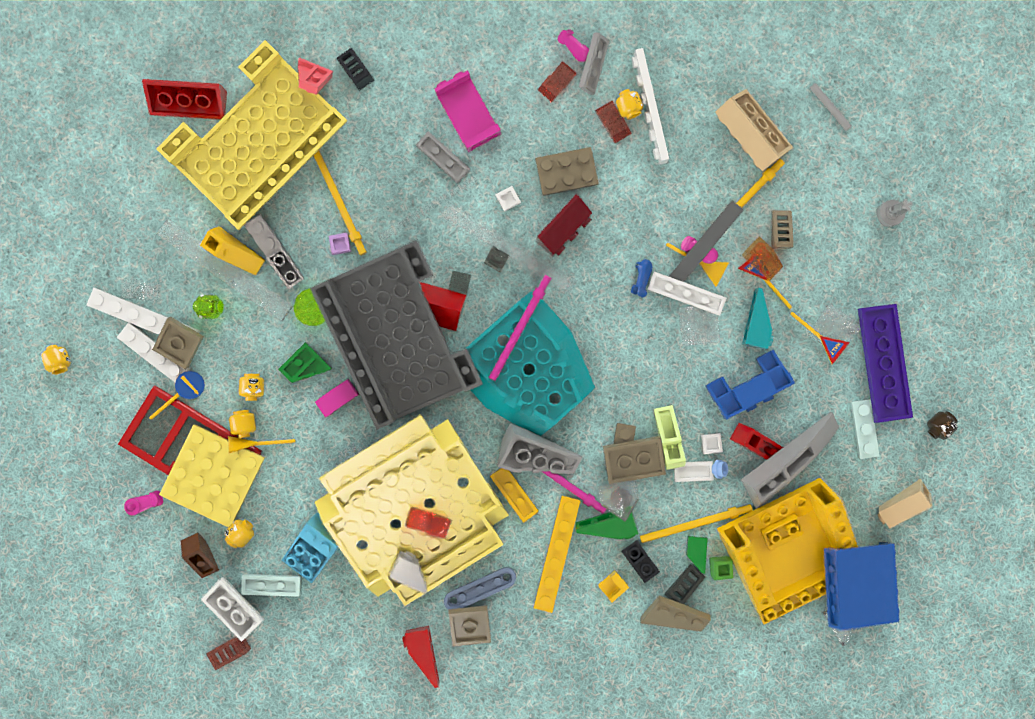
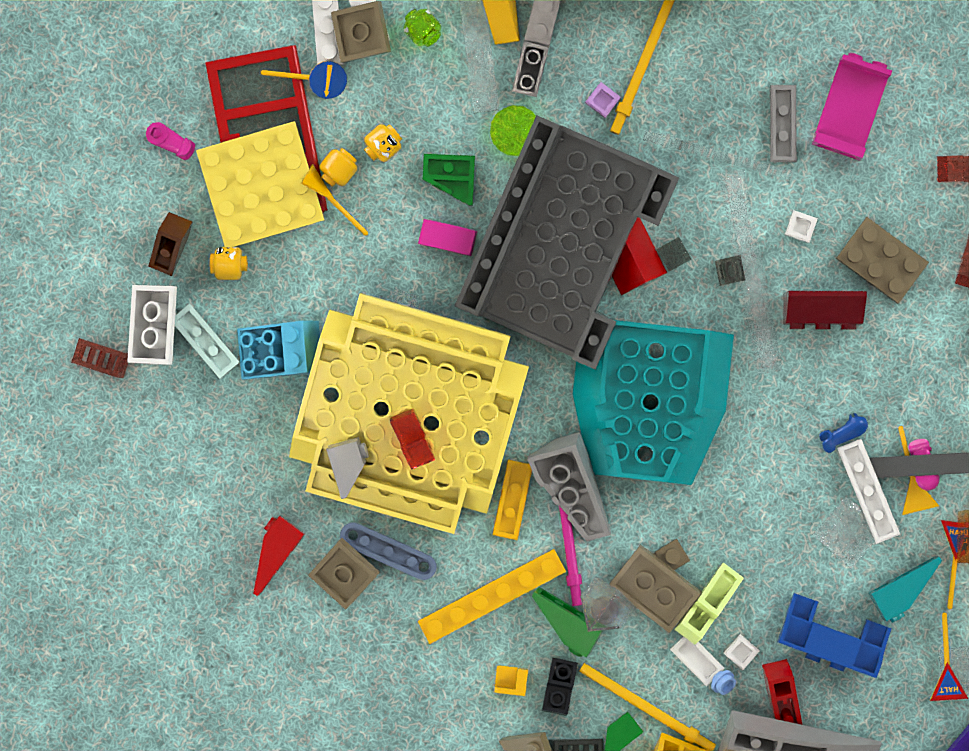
camera: 45 degrees right, 0 degrees up
(538, 294) = (733, 344): dark pink bar -> none

